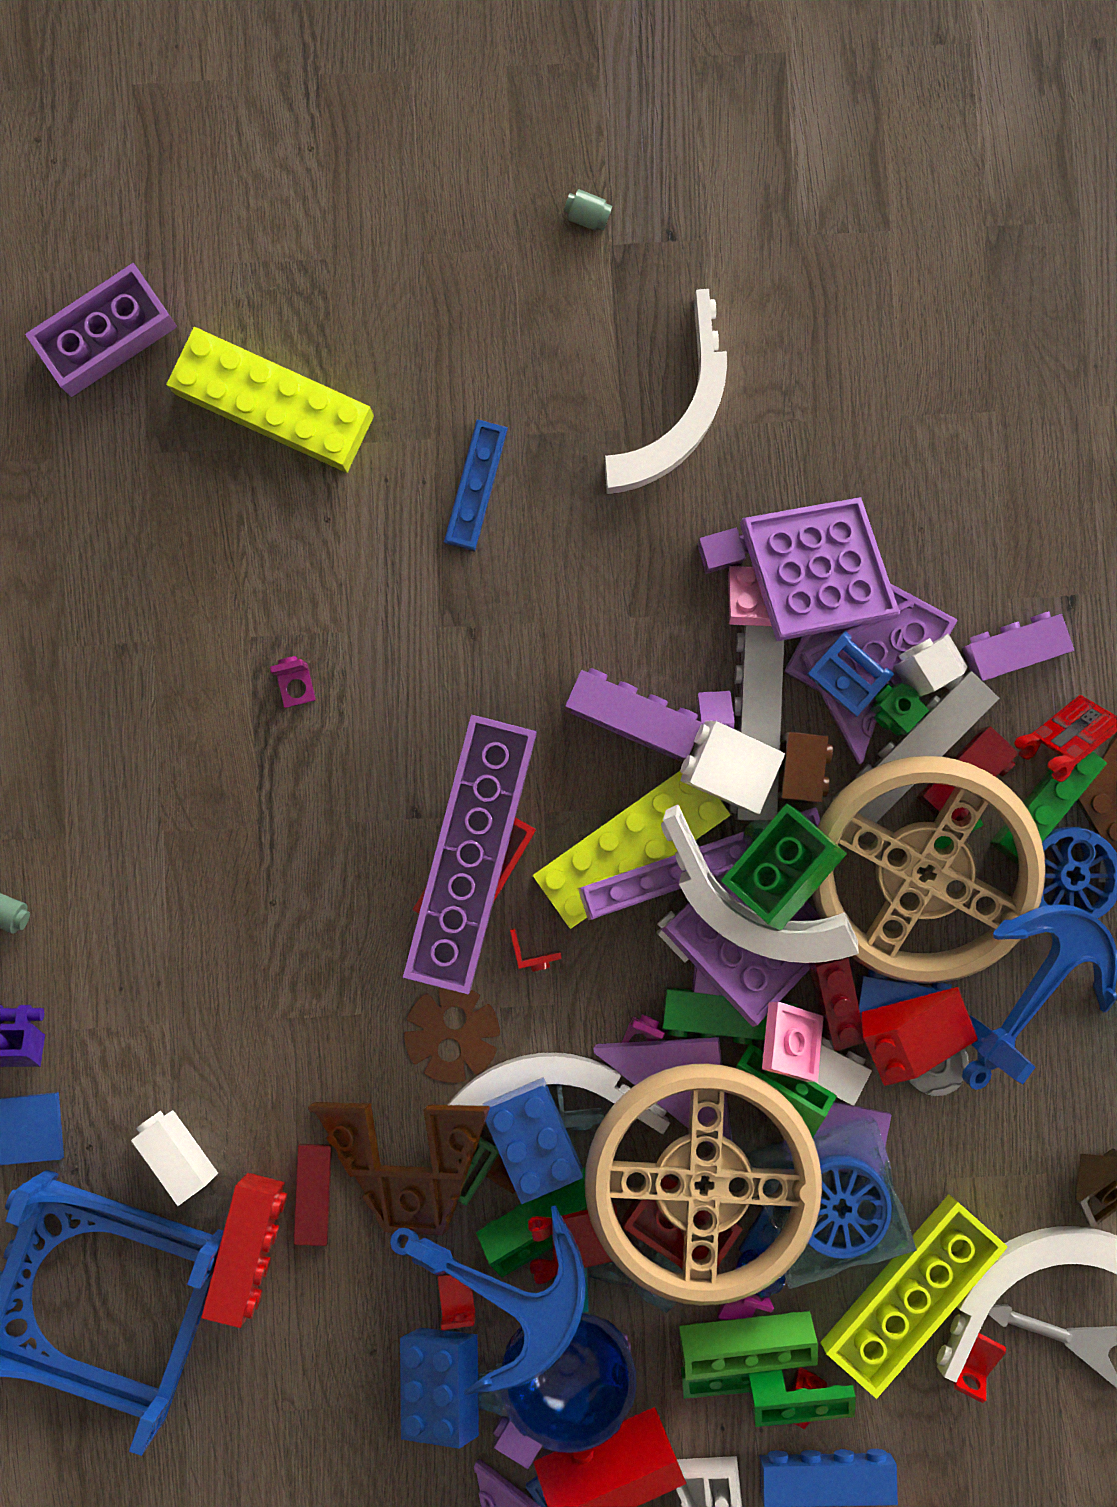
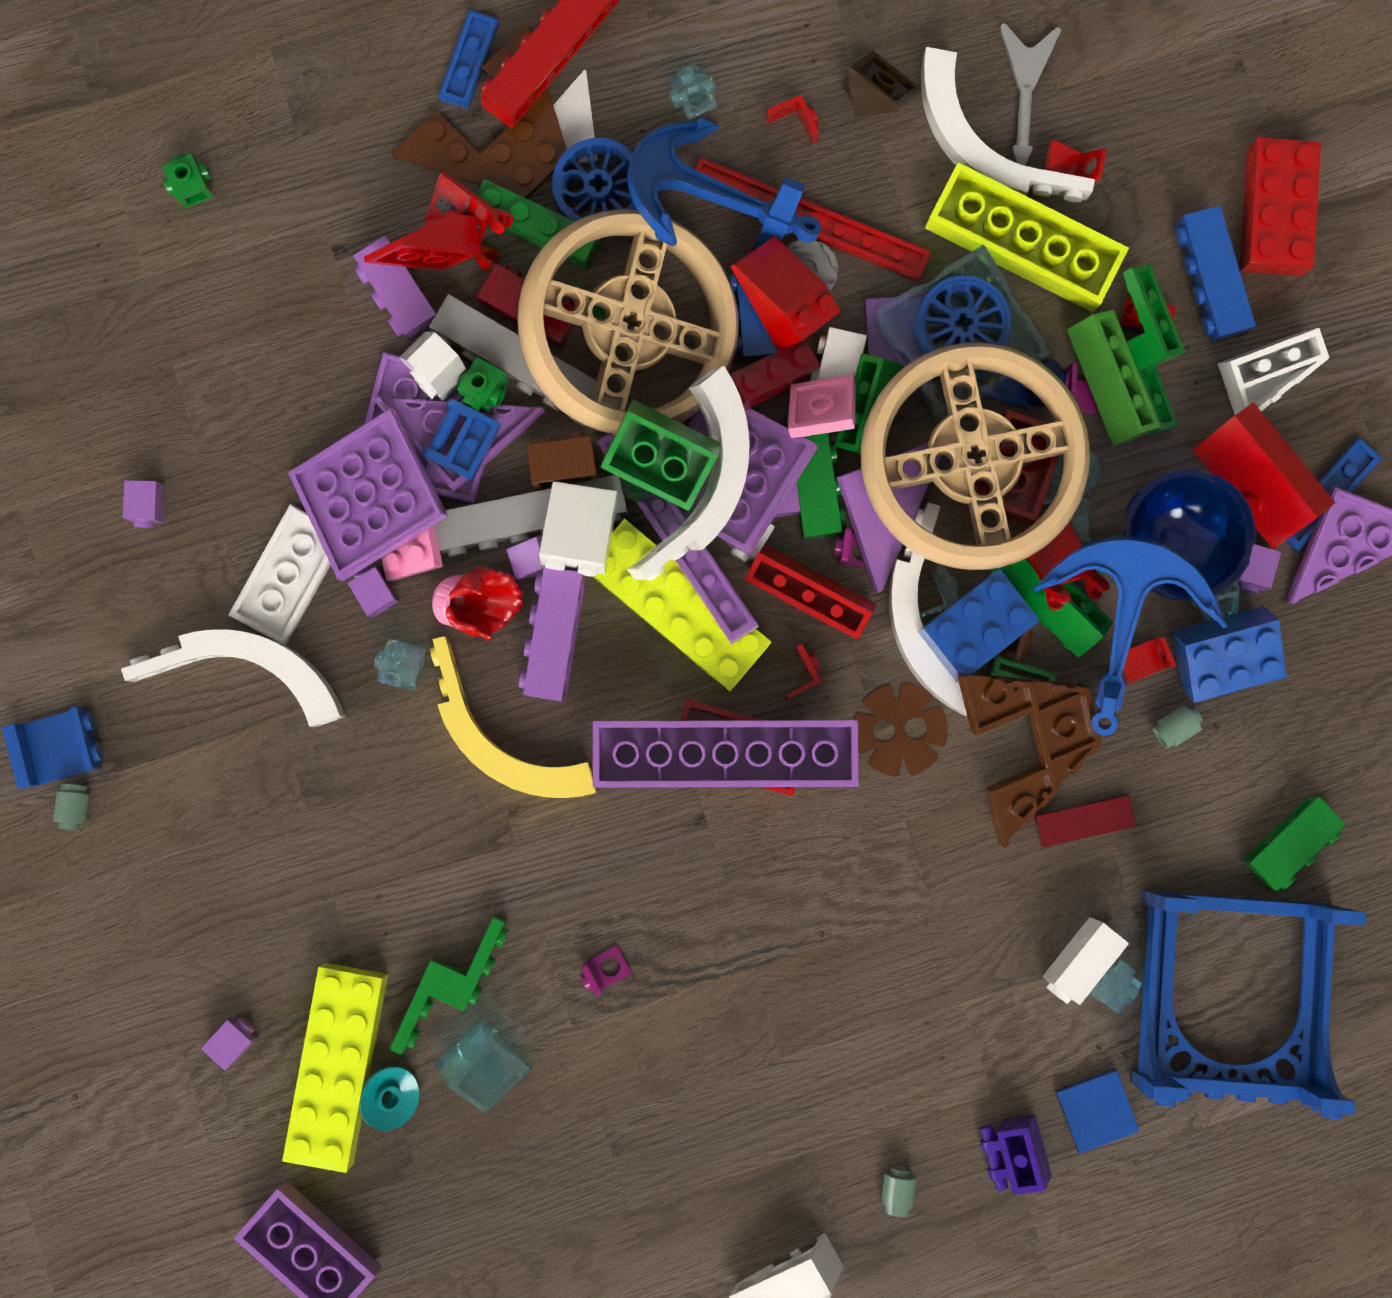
camera: 100 degrees left, 0 degrees up
(139, 1182) = (1117, 987): none -> clear light blue brick
(219, 451) = (399, 1103): none -> teal dish
(233, 540) = (482, 1066): none -> clear light blue slope
(234, 1399) = (1294, 843): none -> green brick
(243, 1250) = (1153, 872): red brick -> none
(319, 529) = (450, 985): none -> green bracket
(321, 306) = (230, 1042): none -> medium lavender brick
(381, 1314) = (1178, 726): none -> sand green brick
(476, 485) = (369, 845): blue tile -> none
(532, 620) = (487, 756): none -> light yellow arch
(610, 981) = (810, 591): none -> red brick
(643, 559) = (400, 664): none -> clear light blue brick
(649, 206) = (53, 748): none -> blue panel
(685, 650) = (477, 601): none -> red hair
(757, 466) = (283, 579): none -> white tile
(866, 350) = (143, 503): none -> medium lavender brick
(969, 1105) = (837, 229): none -> red tile
(1051, 695) = (434, 246): none -> red slope
(1093, 1104) = (806, 115): none -> red bracket

